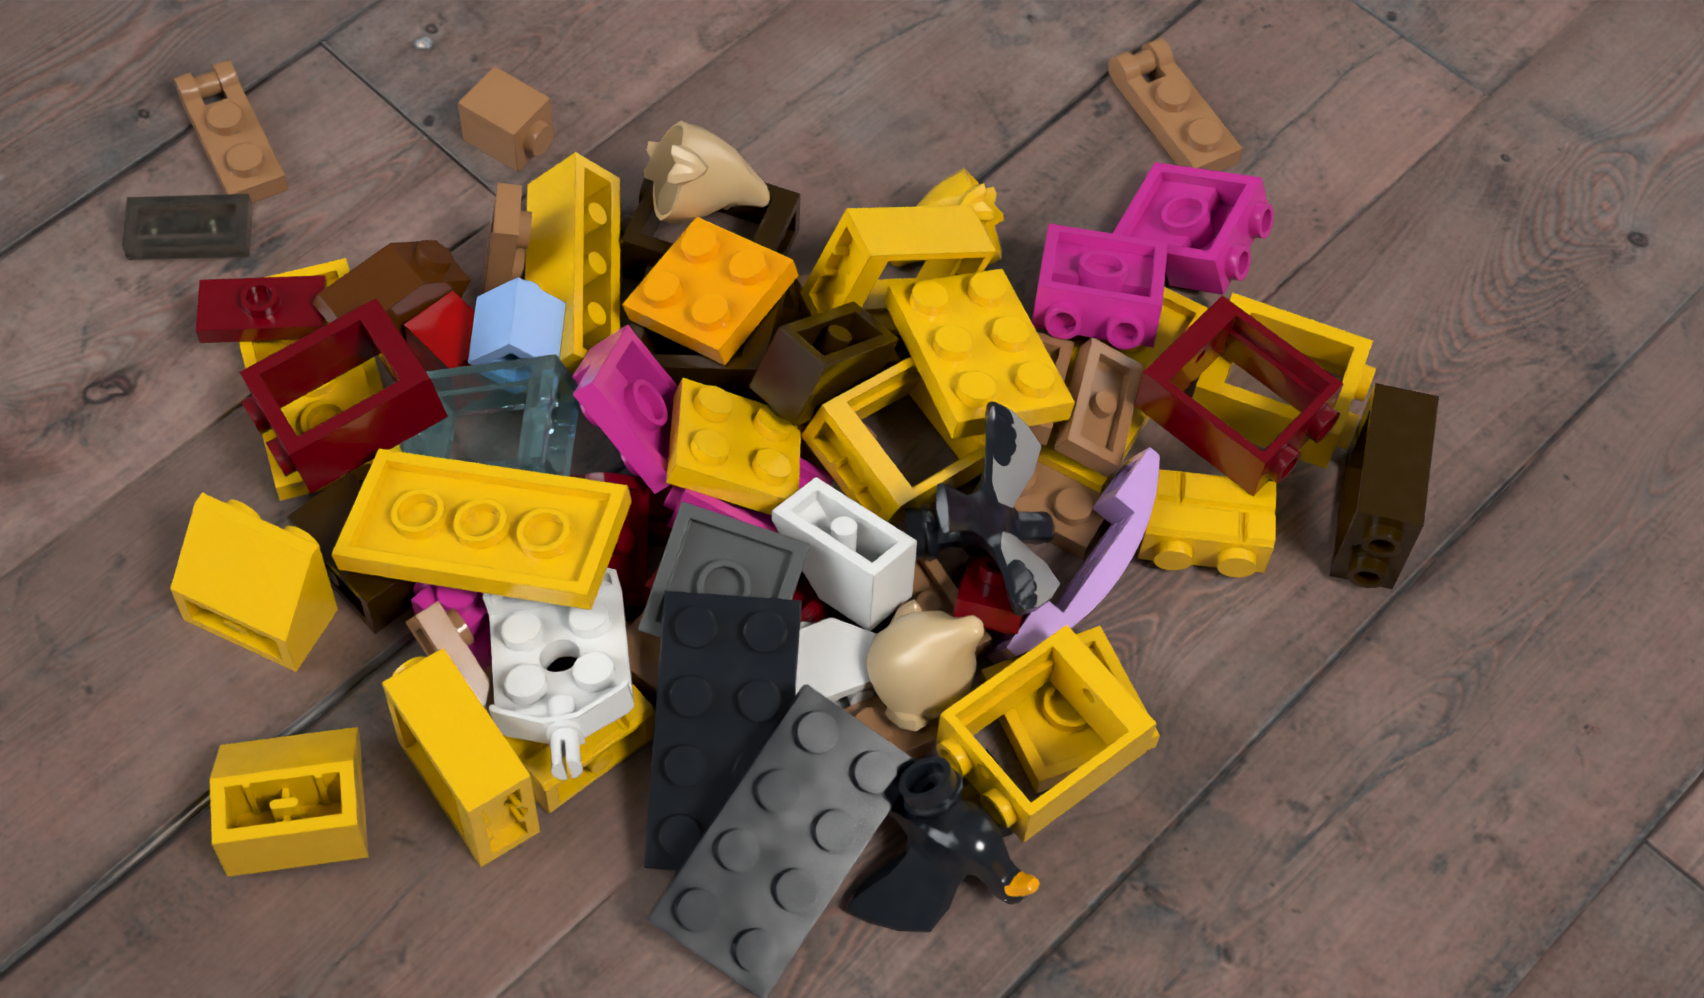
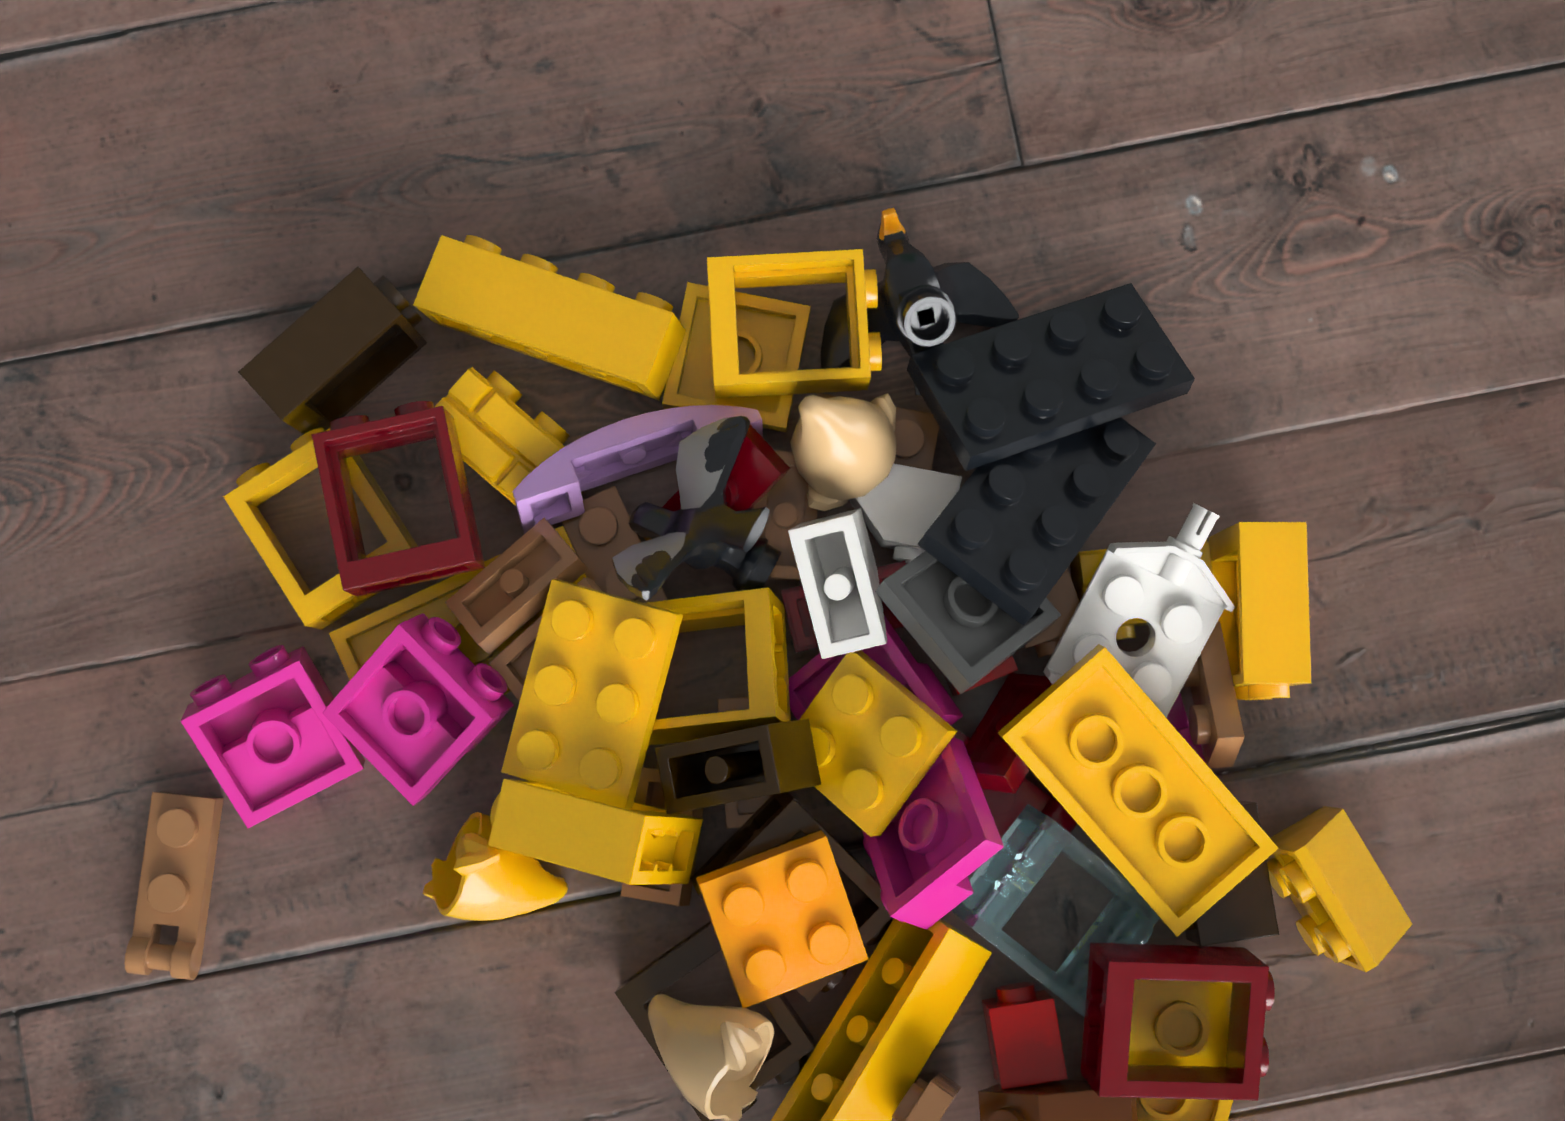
camera: 140 degrees left, 25 degrees up
(288, 802) = (1403, 675): yellow slope -> none
(516, 323) = (980, 991): light blue brick -> none
(1245, 628) = (551, 315): none -> yellow brick

